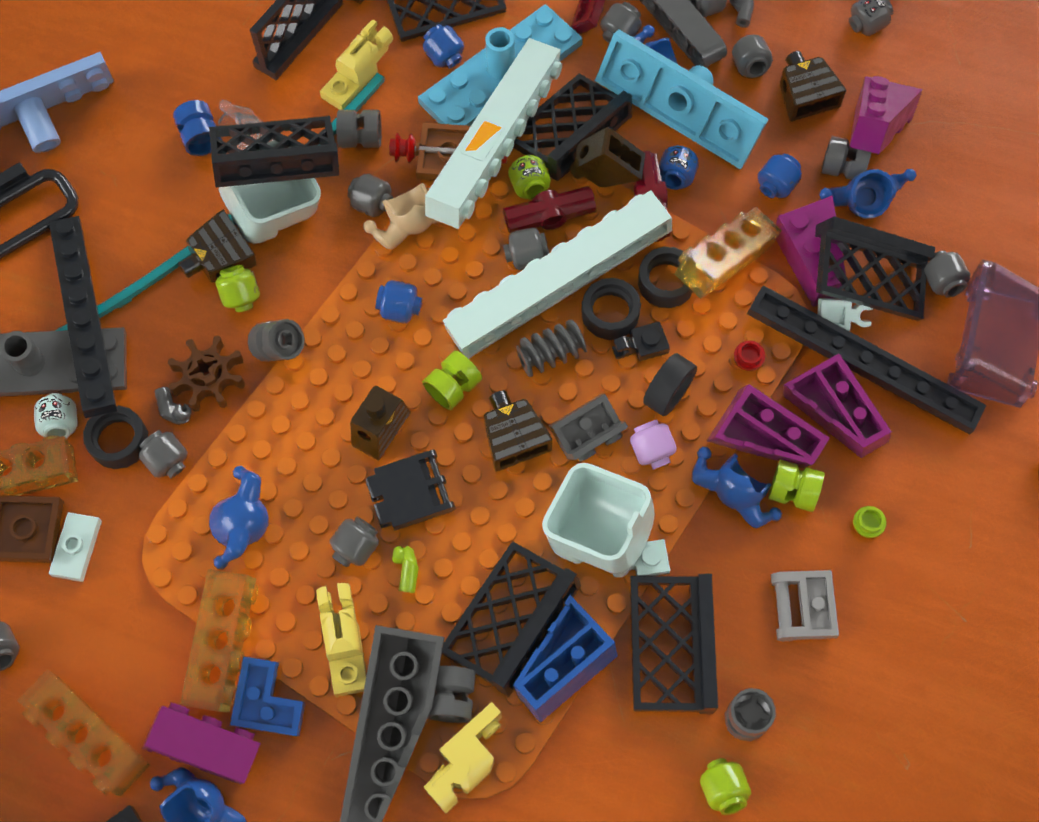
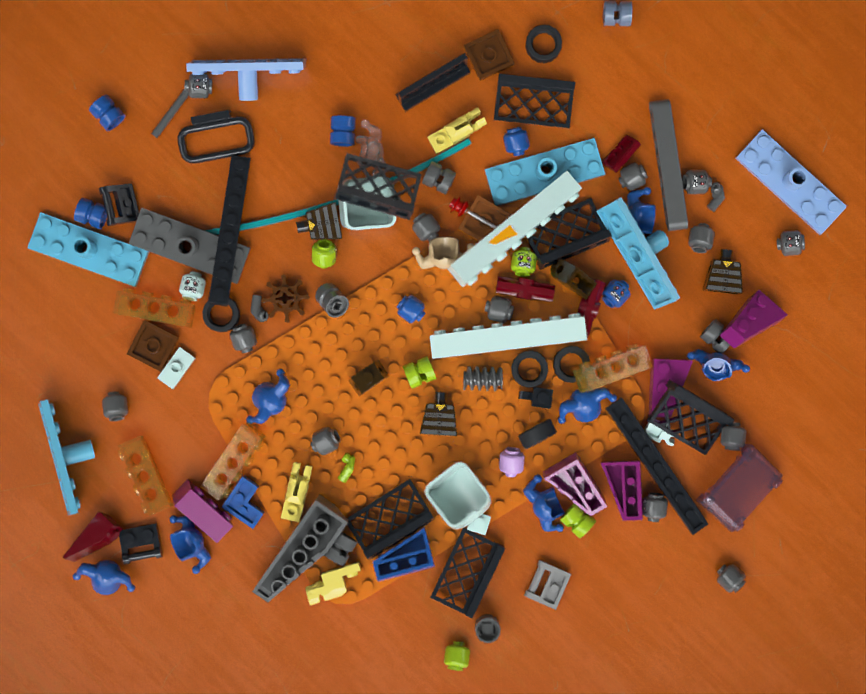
camera: 25 degrees right, 20 degrees up
(408, 491) = (367, 425): black plate -> none
(588, 428) = (481, 436): dark grey bracket -> none
(716, 317) = (584, 405): none -> blue piece
(749, 355) = (593, 433): red plate -> none
(779, 176) = (672, 328): blue head -> none
(869, 522) = (607, 556): lime plate -> none
(899, 415) = (655, 506): none -> dark grey head

